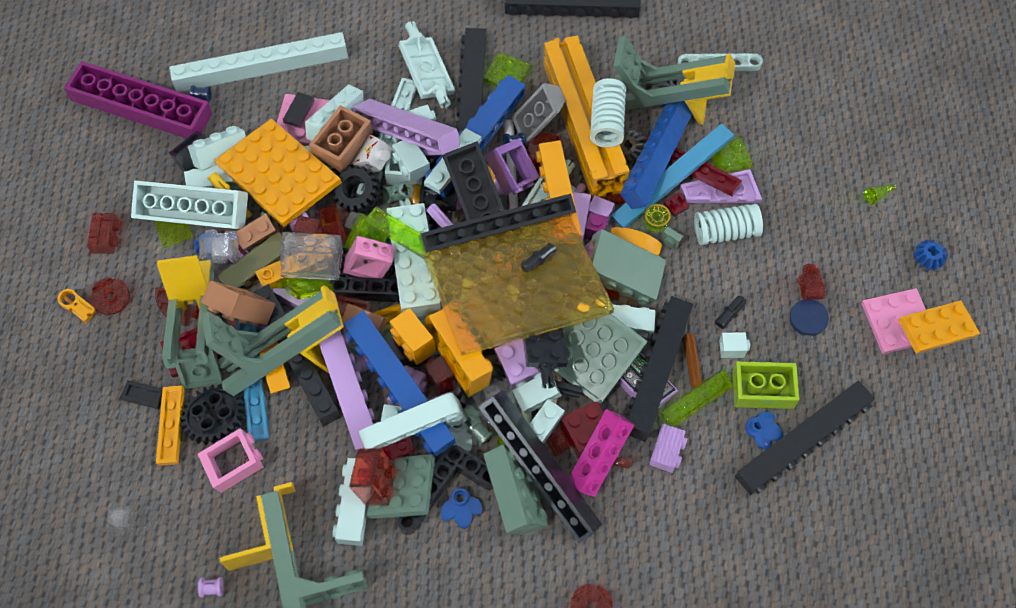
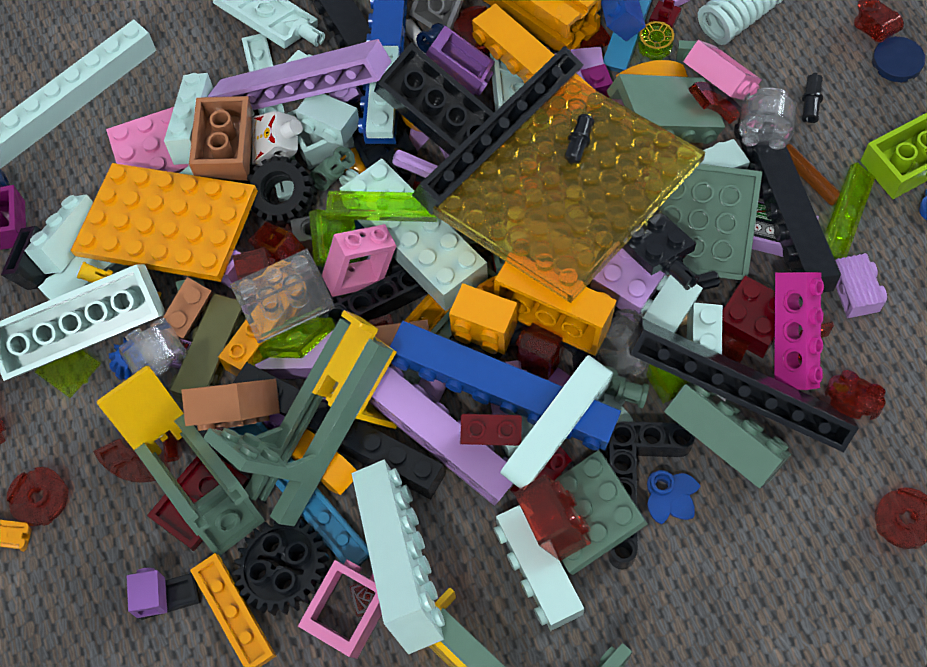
camera: 25 degrees left, 0 degrees up
(130, 386) = (146, 593): none -> medium lavender brick
(271, 446) = (397, 557): none -> light aqua brick
(298, 110) = (138, 137): black tile -> none
(370, 404) = (490, 429): none -> dark red bracket
(617, 506) = (855, 395): none -> clear red plate
(662, 279) = (715, 99): none -> clear red tile
(677, 309) = (767, 118): none -> clear brick
(680, 262) = (722, 70): none -> bright pink window
(734, 345) = (843, 131): light aqua brick -> none

